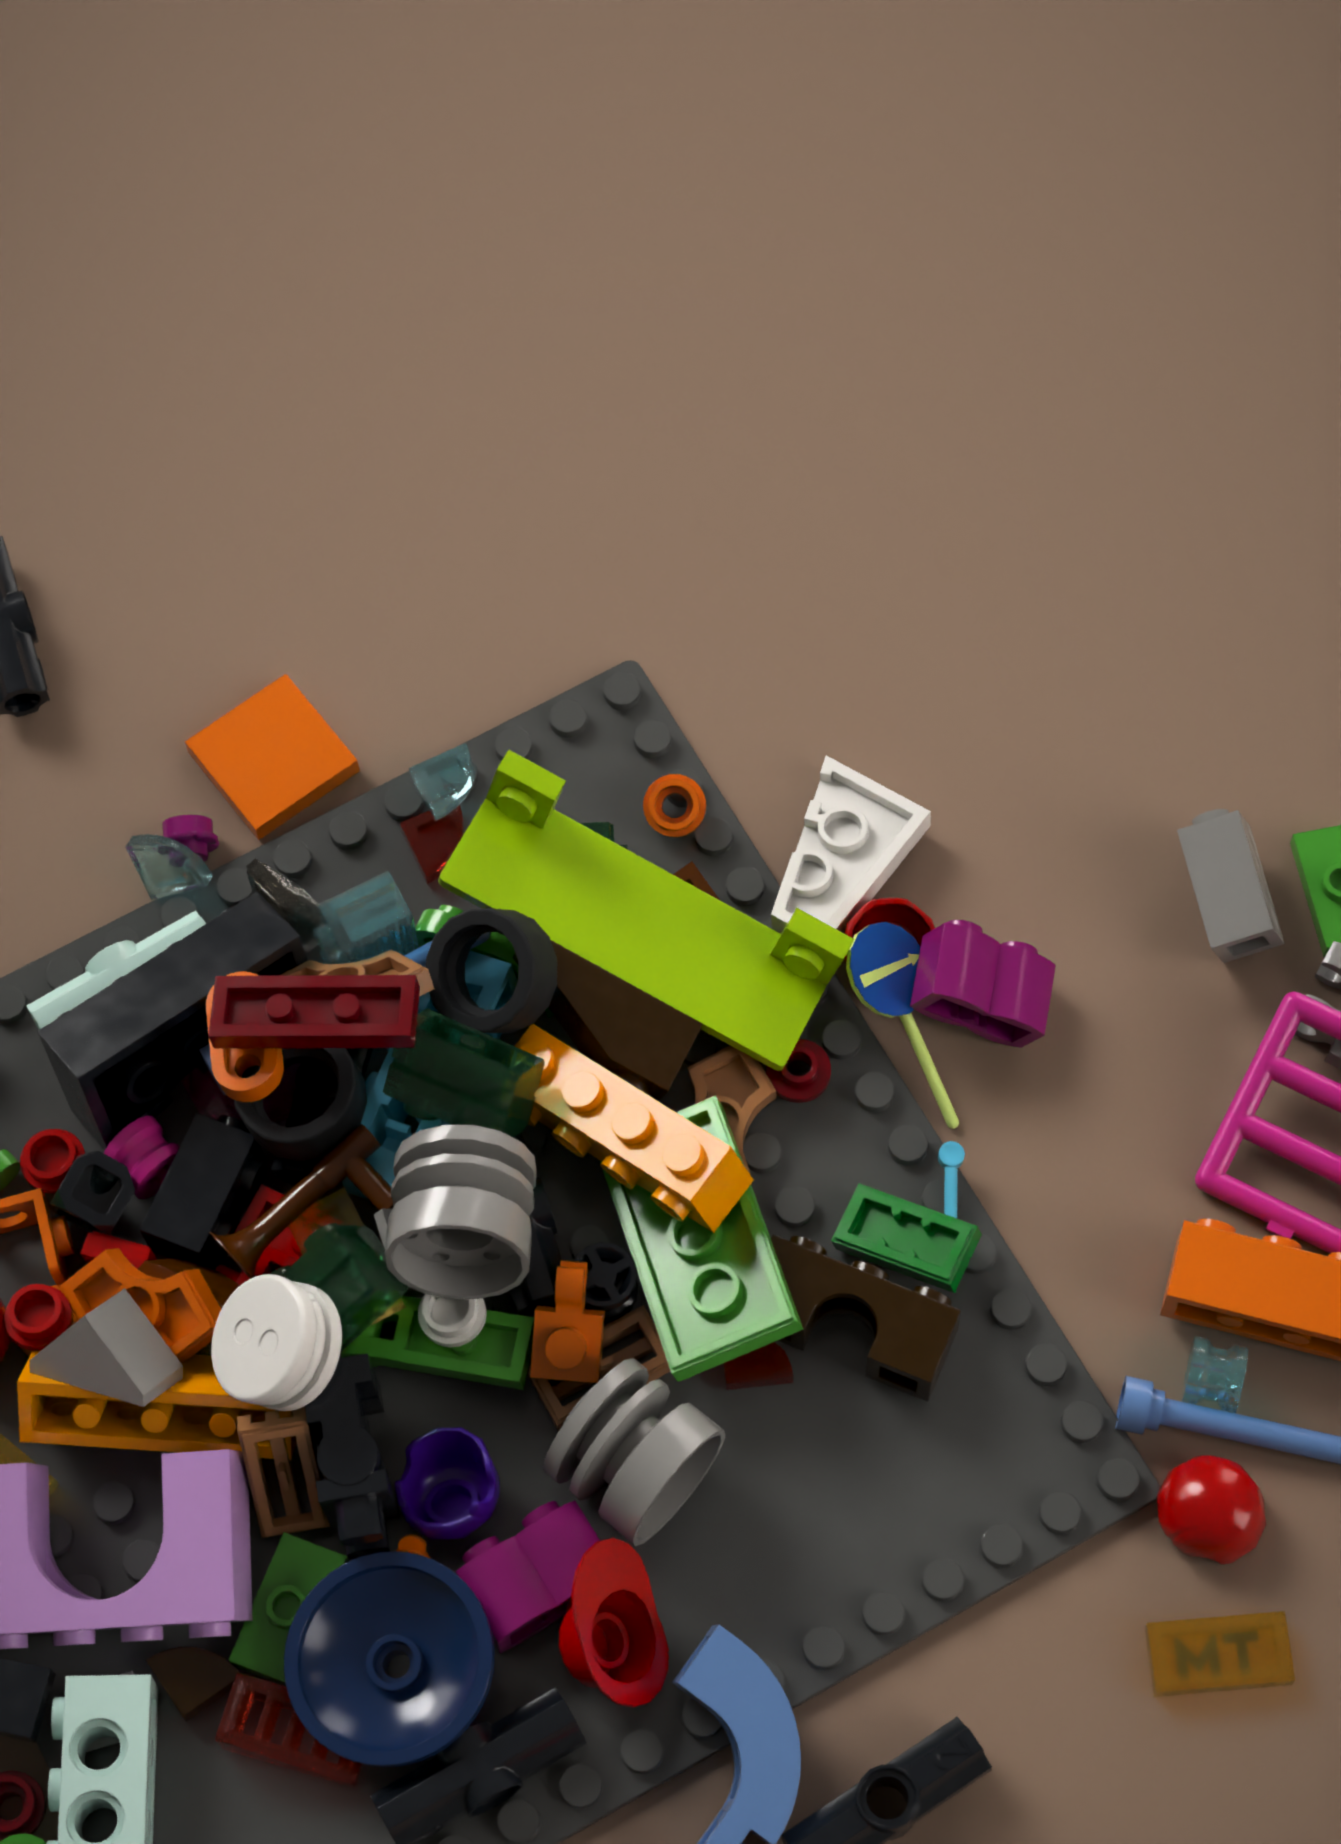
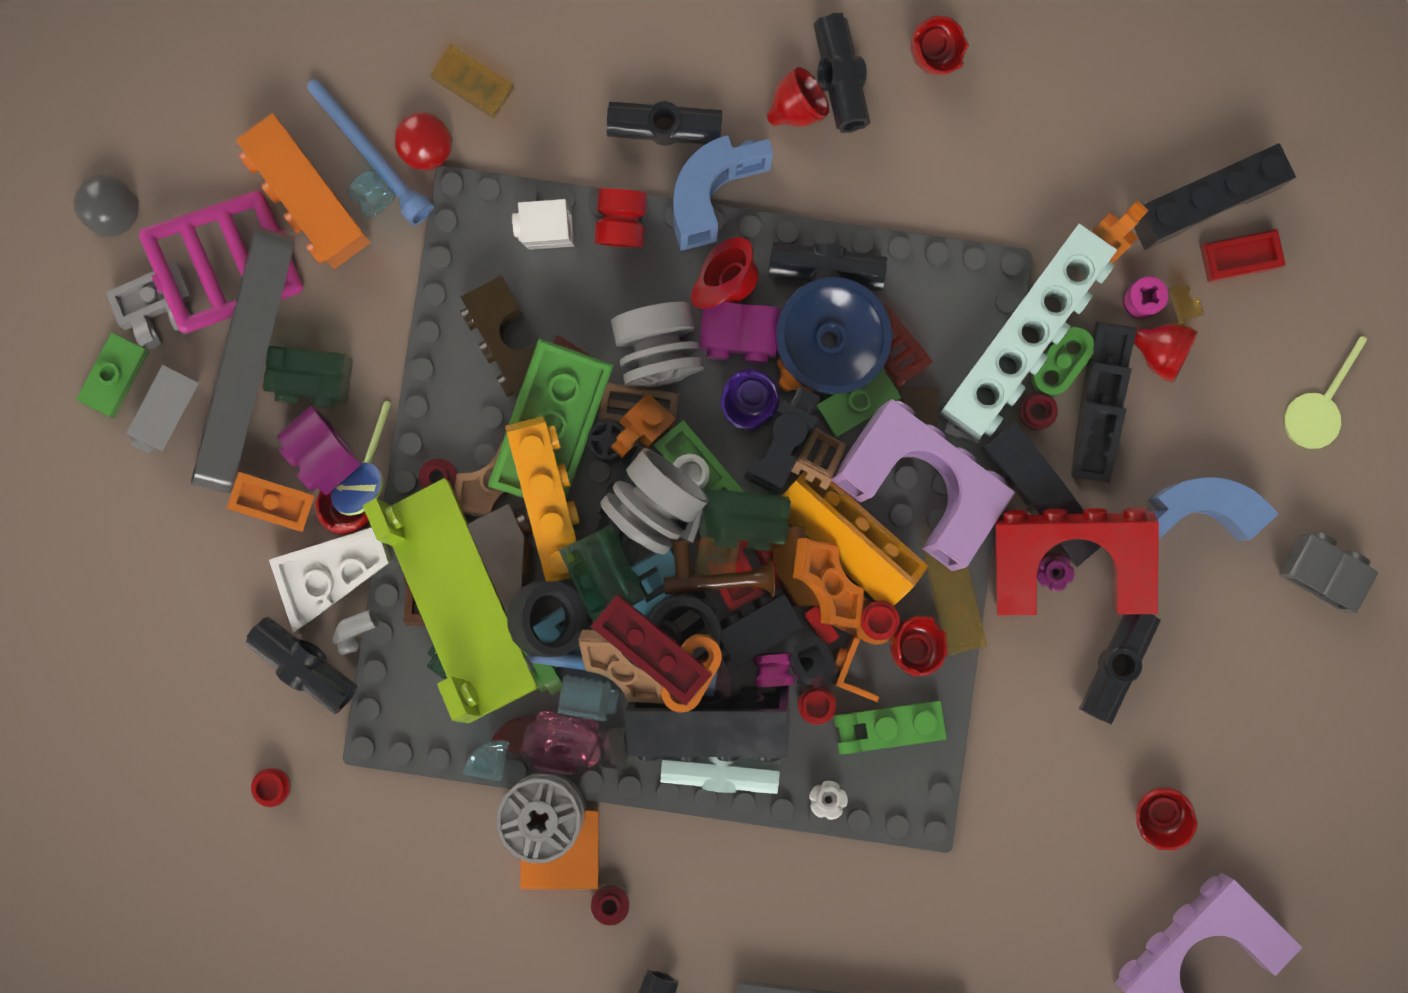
camera: 145 degrees left, 20 degrees up
(112, 1354) = (862, 566): light grey slope -> none
(157, 751) = (613, 893): none -> dark red plate
(166, 865) = (655, 822): clear light blue tile -> none
(193, 832) = (634, 831): magenta plate -> none
(276, 1343) = (786, 502): white head -> none
(318, 757) = (543, 793): none -> light grey wheel
(361, 854) = (579, 740): none -> clear pink plate
(667, 786) = (387, 648): orange plate -> none
(699, 568) = (270, 787): none -> red plate
(755, 810) = (350, 628): none -> light grey arm
(781, 724) = (301, 665): none -> black piece
(837, 1607) = (620, 218): none -> red wheel
(906, 1238) = (455, 357): green plate -> none
(925, 1496) = (544, 224): none -> white piece
(951, 1158) = (403, 382): medium azure hinge -> none
(992, 878) = (270, 501): none -> orange plate
(1083, 1071) = (307, 375): none -> clear green brick
(1183, 1024) = (243, 360): none -> dark grey beam

